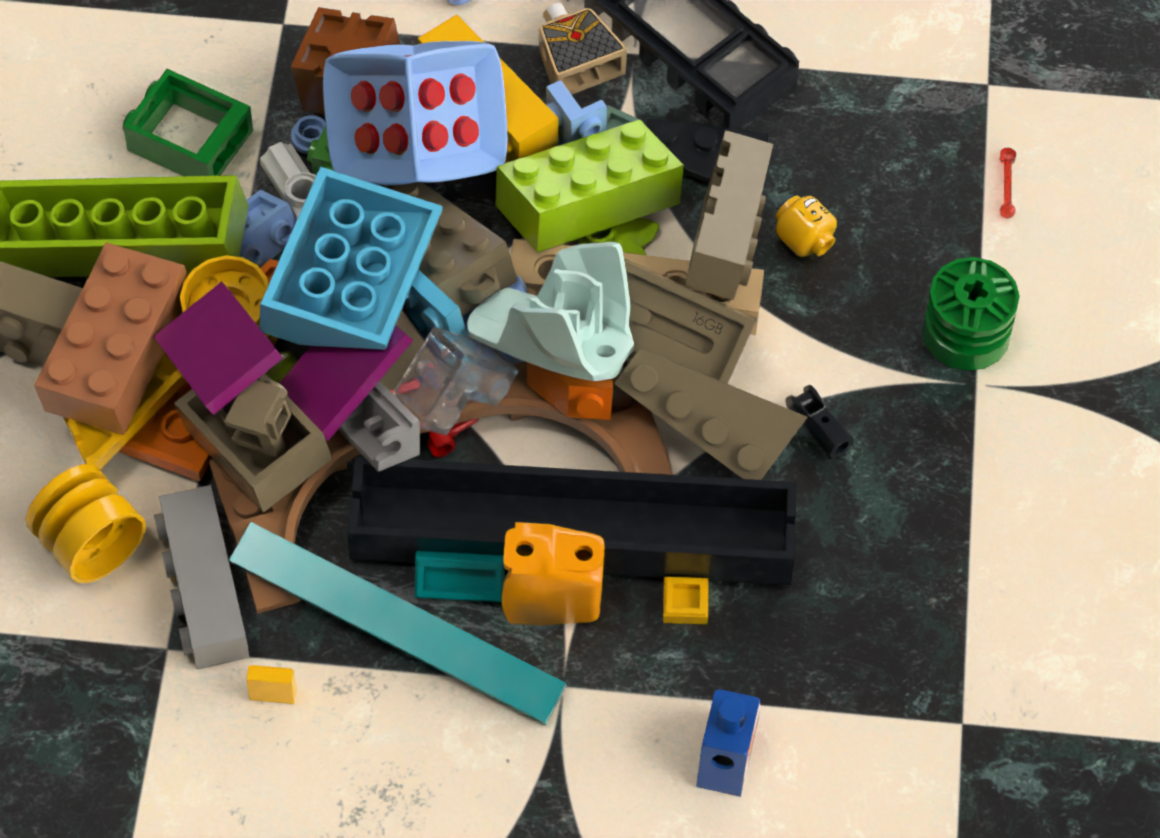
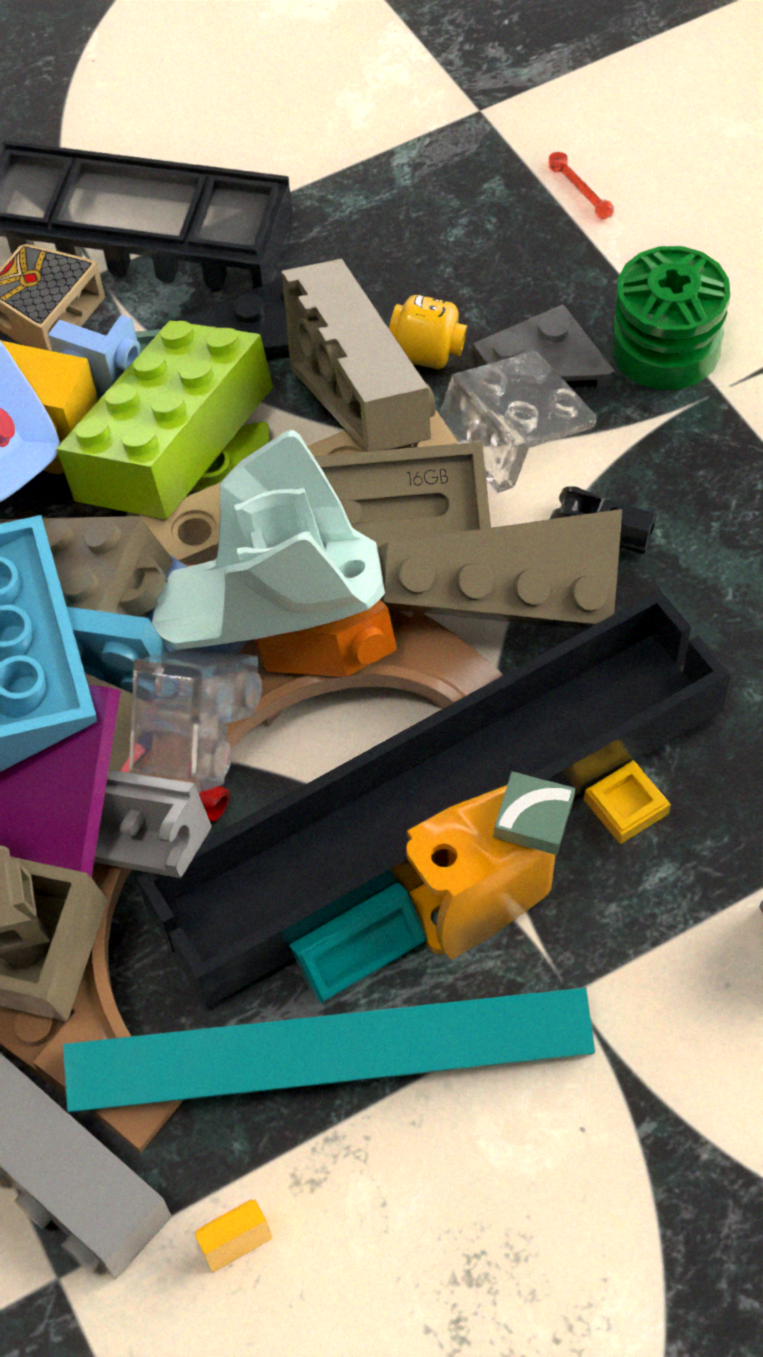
camera: 30 degrees left, 0 degrees up
(592, 556) = (534, 813): none -> sand green tile
(817, 313) = (511, 410): none -> clear bracket
(875, 287) = (557, 340): none -> flat silver wing

